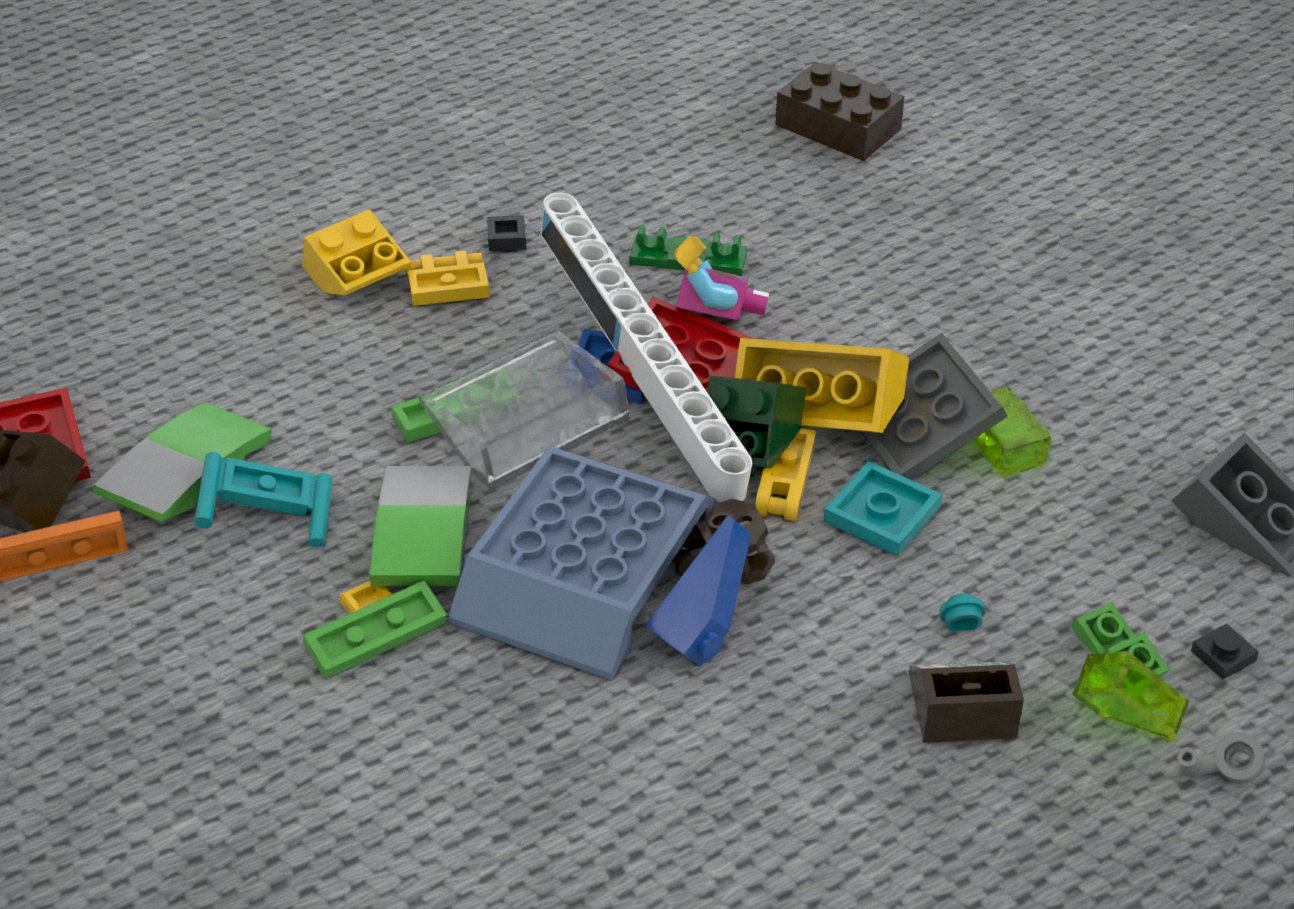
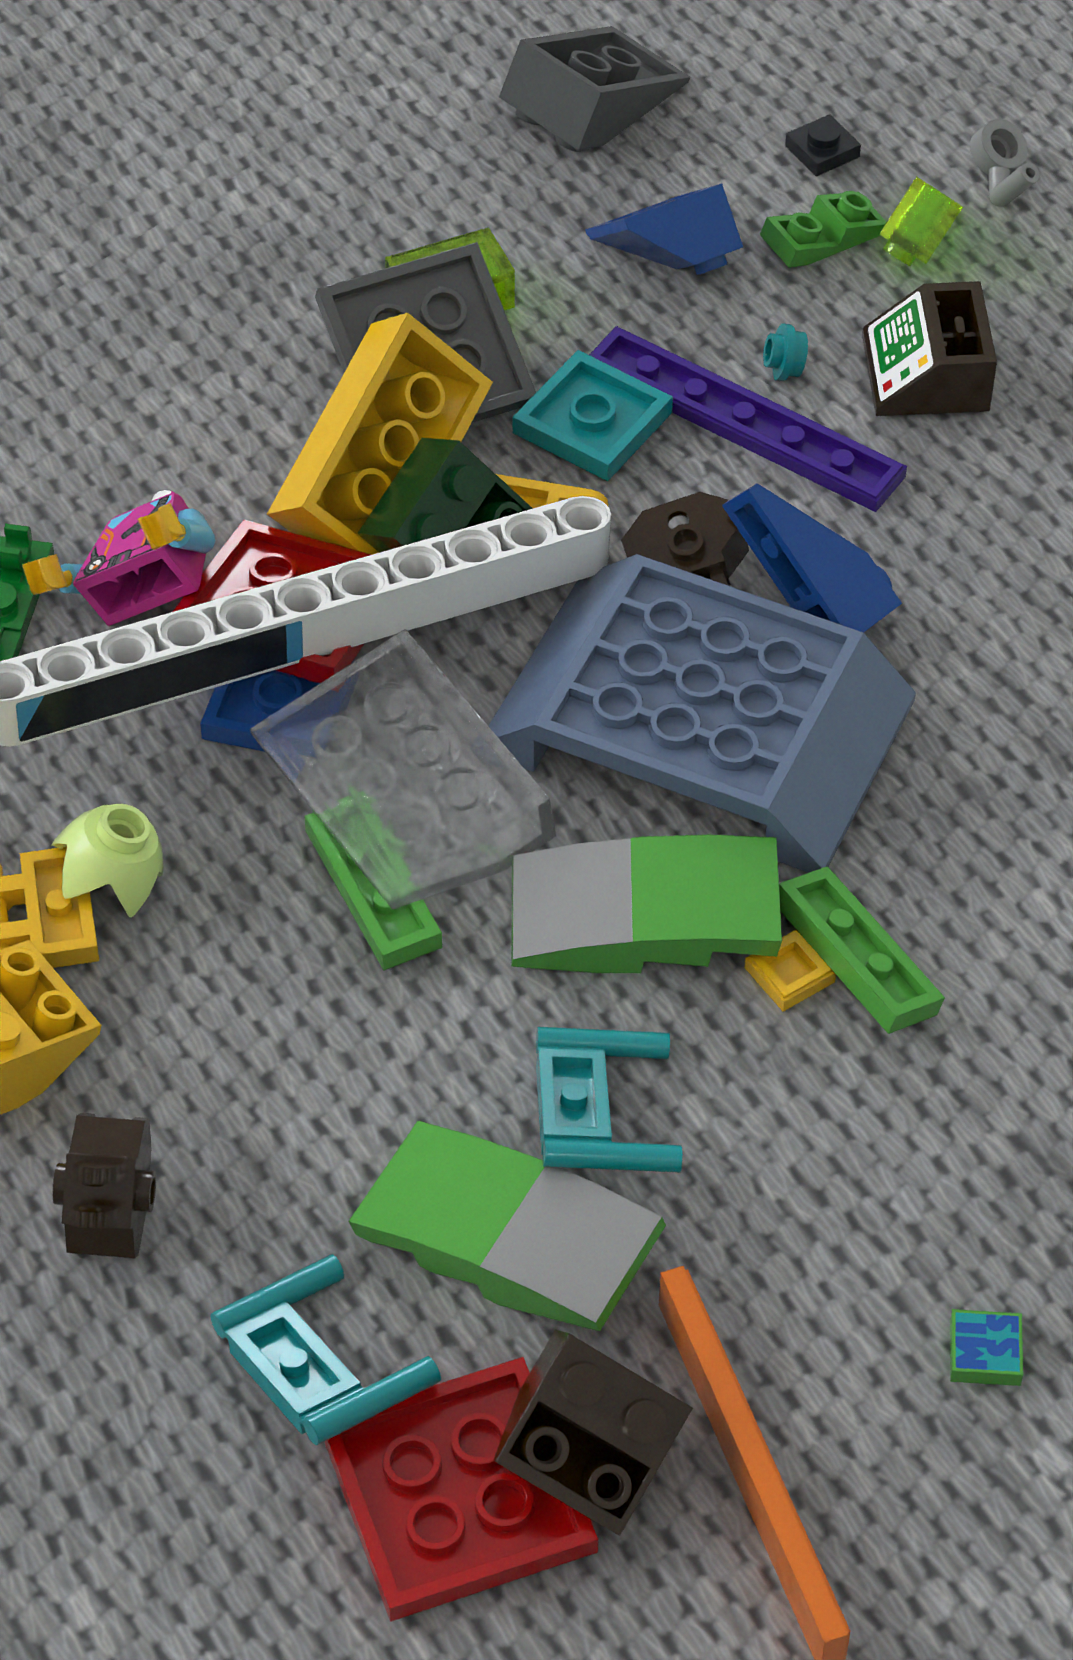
camera: 90 degrees left, 10 degrees up
(51, 685) = (986, 1347): none -> tile
(108, 378) = (299, 1368): none -> teal plate
(227, 291) = (106, 1186): none -> dark brown hinge
(474, 302) = (112, 848): none -> yellowish green piece
(893, 598) = (756, 422): none -> dark purple tile
(1082, 547) = (677, 232): none -> blue slope

